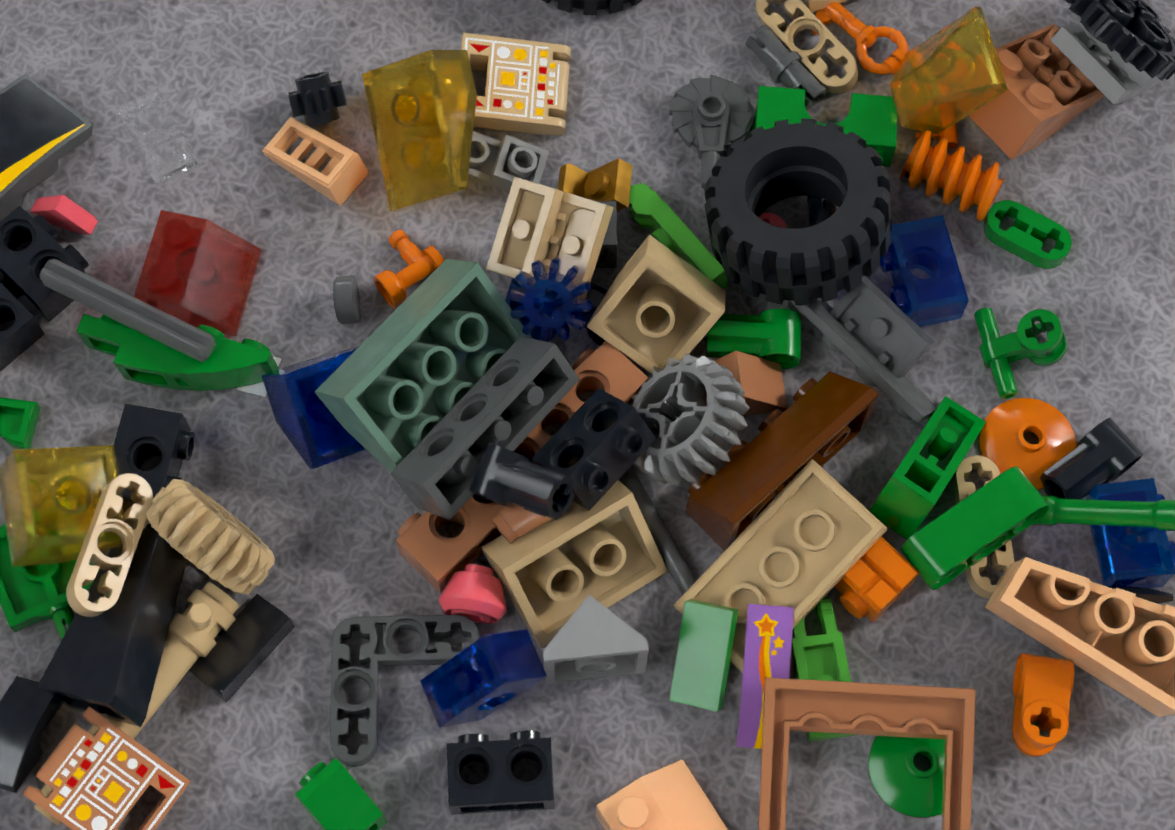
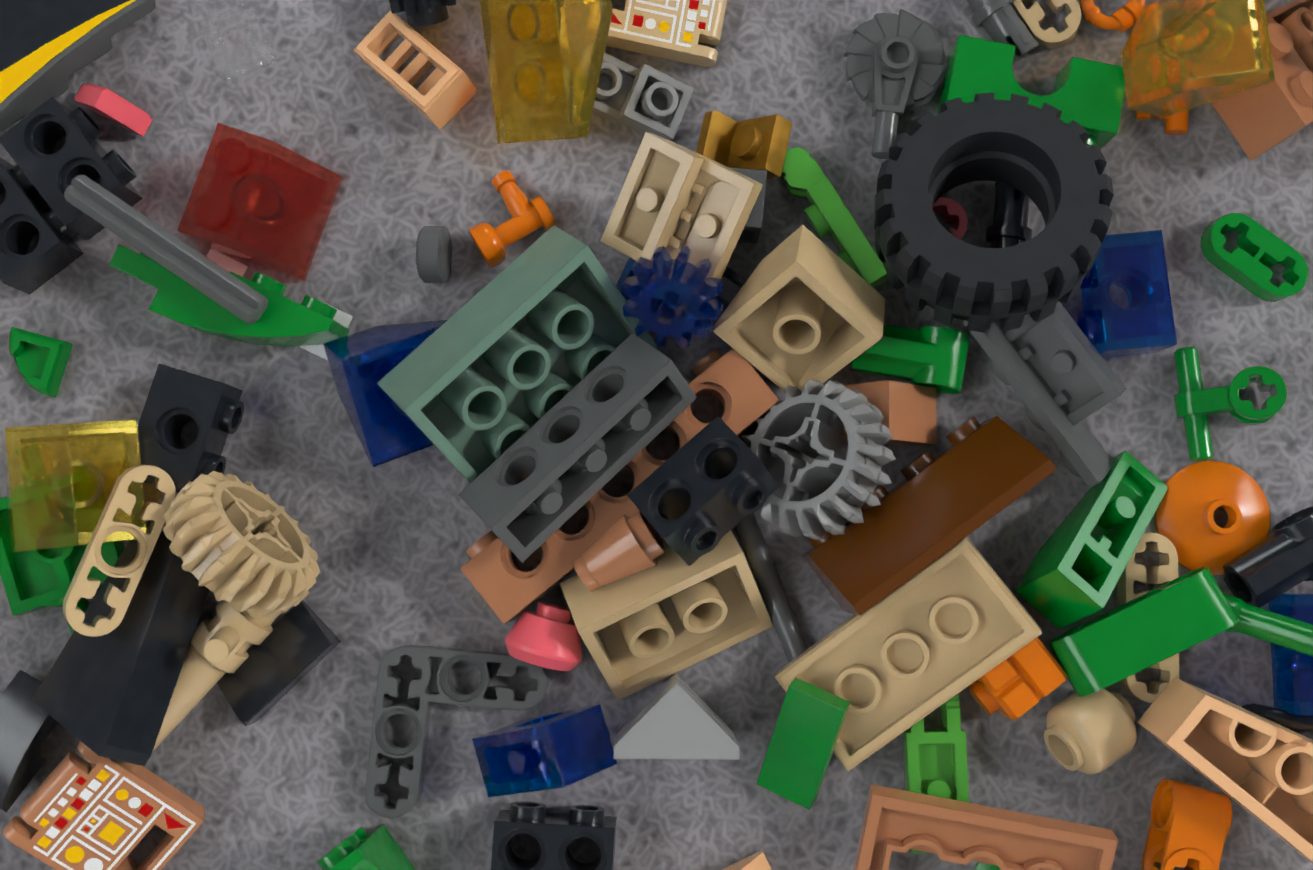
camera: 10 degrees right, 15 degrees up
(512, 479) = (599, 531): black piece -> none
(765, 655) = (874, 759): medium lavender sticker -> none
(947, 619) = (1090, 731): none -> tan head
(952, 175) = (1179, 173): orange piece -> none

